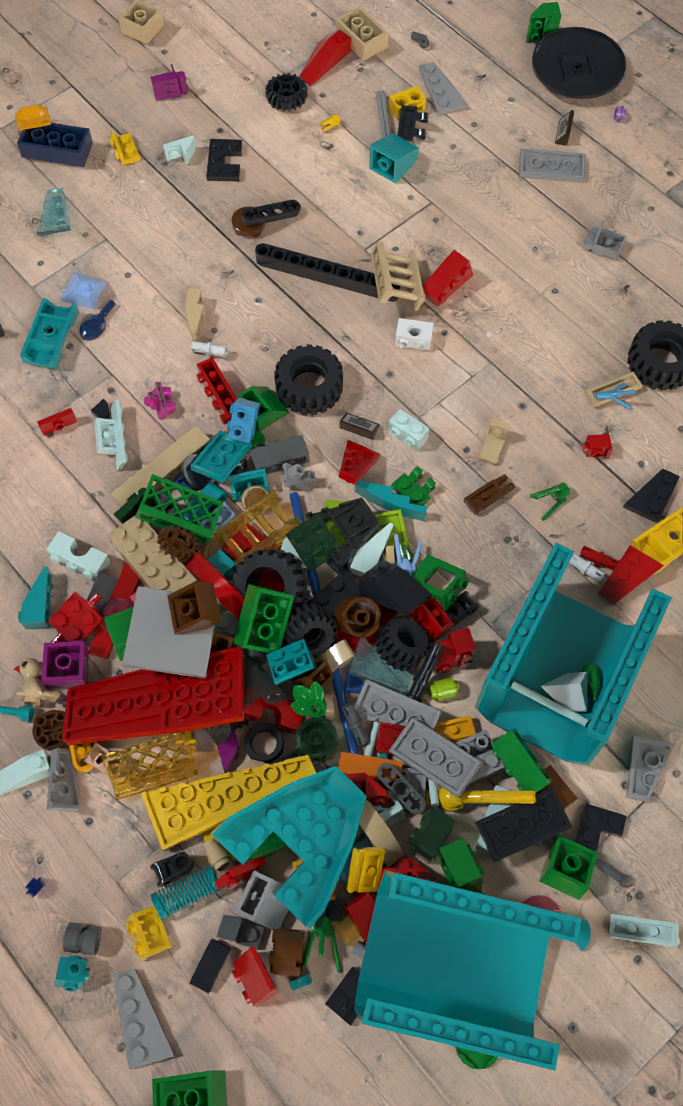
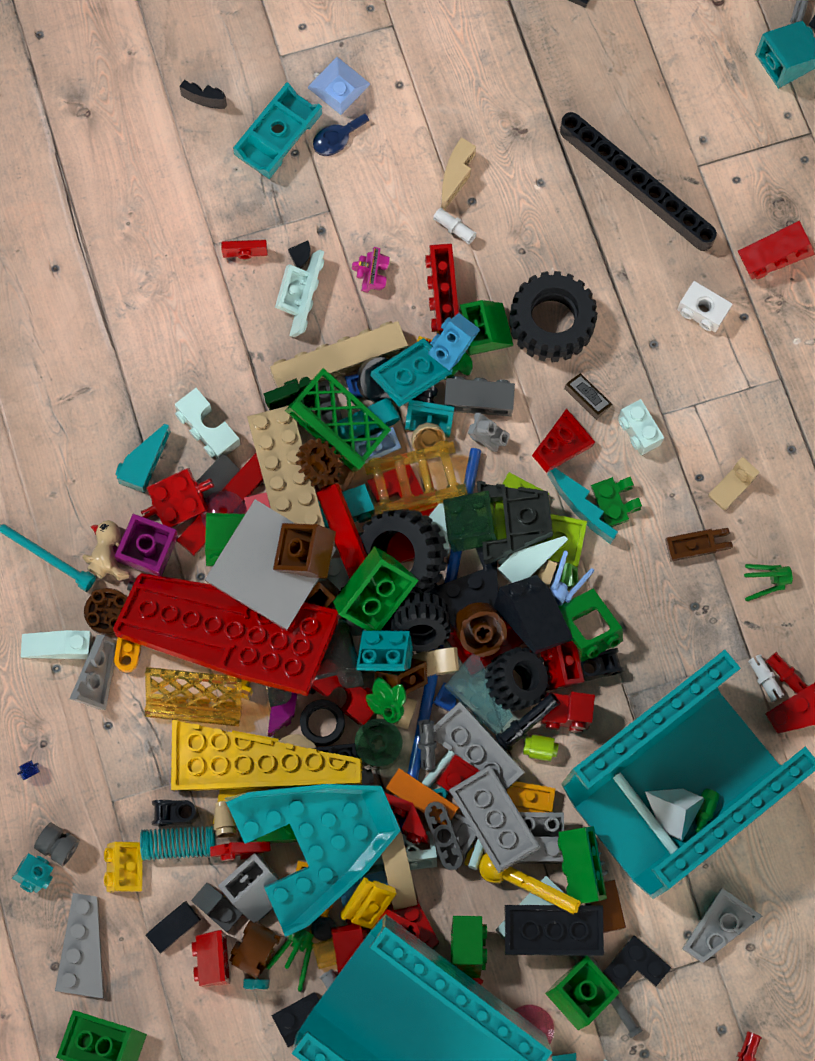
camera: 20 degrees right, 10 degrees up
(94, 758) = (141, 661): medium nougat hips -> none
(241, 229) = (572, 71): reddish brown tile -> none
(252, 215) = (603, 72): black beam -> none
(384, 280) = (697, 224): tan fence -> none
(431, 835) = (454, 896): clear green brick -> none

